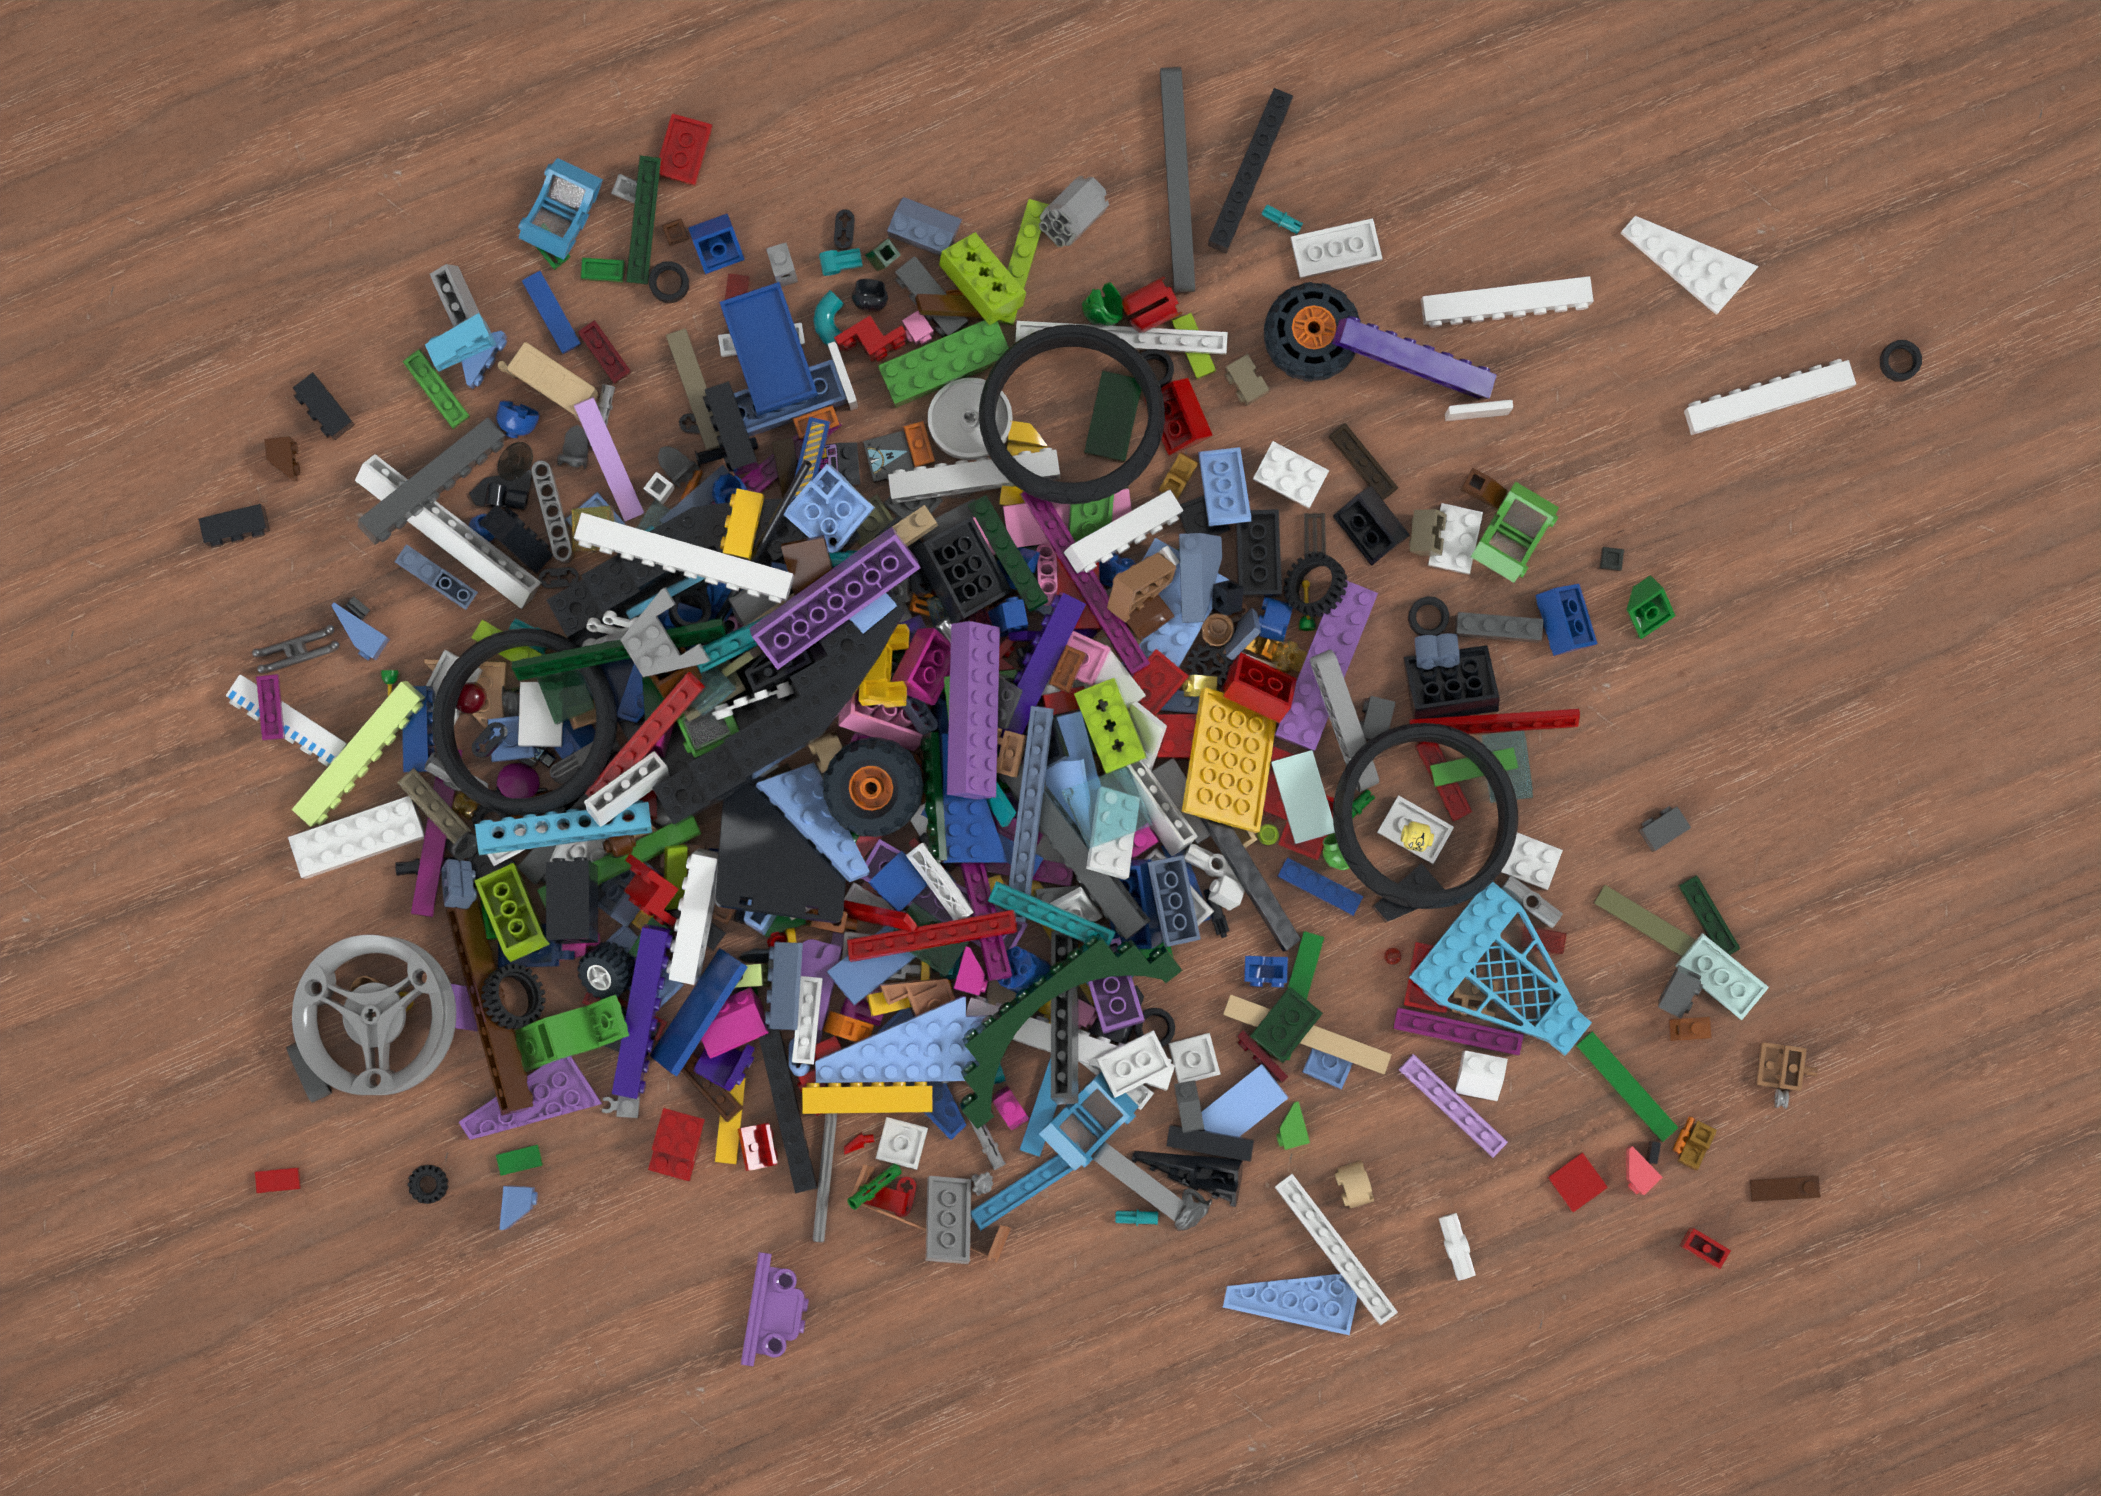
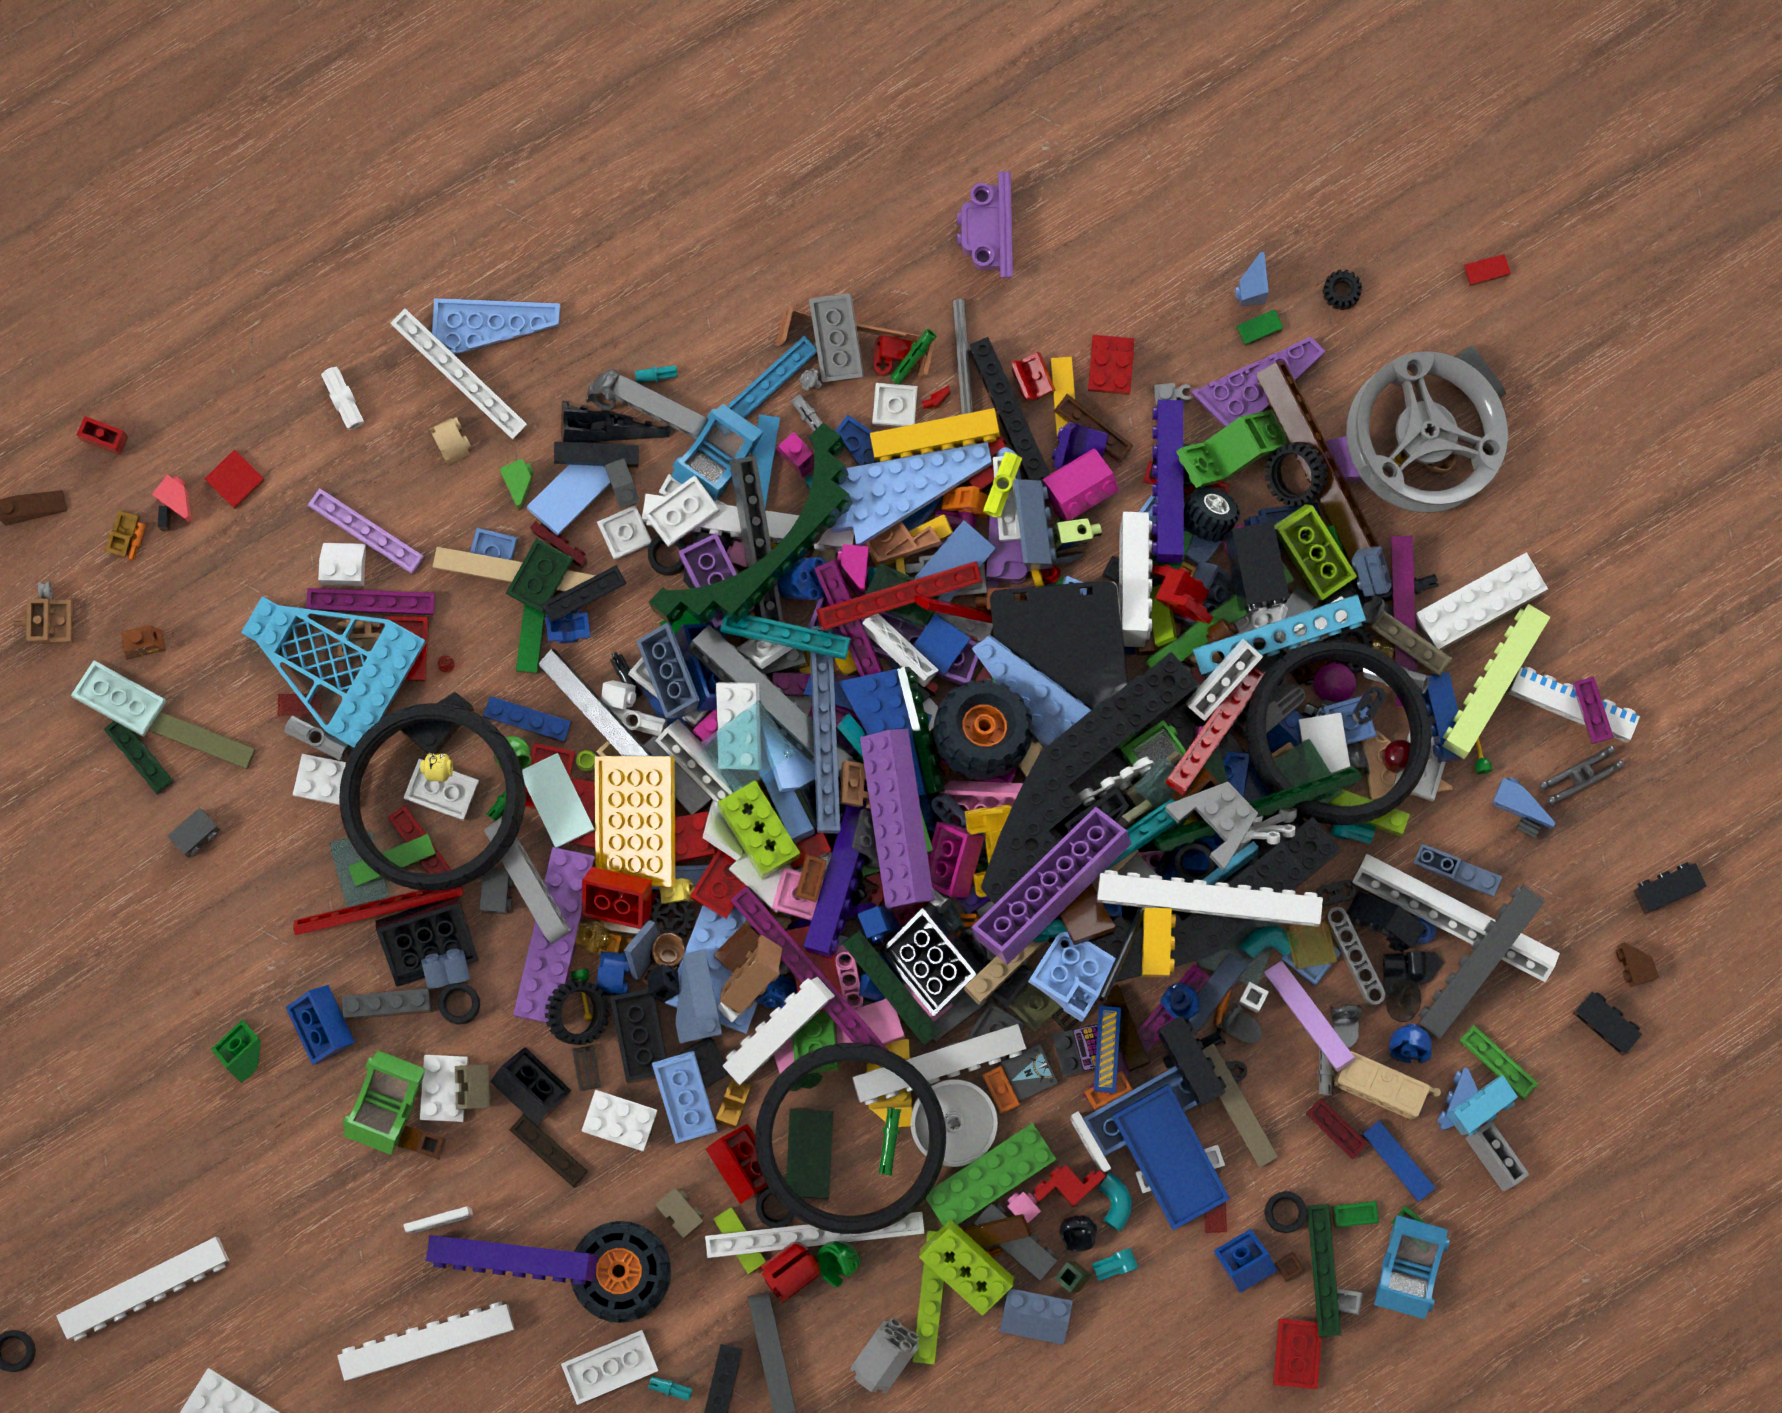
camera: 175 degrees right, 5 degrees down
(698, 1011) = (1113, 489): blue tile -> none
(782, 264) = (1174, 1250): light grey torso -> none
(801, 1044) = (998, 497): none -> neon yellow piece
(839, 229) = (1122, 1297): black beam -> none
(873, 613) = (1010, 877): light blue tile -> none
(1031, 408) = (889, 1141): none -> green pin
(1245, 998) = (583, 594): none -> black tile
(1611, 558) = (282, 1095): pearl dark grey tile -> none
(1627, 1086) = (198, 578): green tile -> none
(1680, 991) = (157, 675): dark grey brick -> none

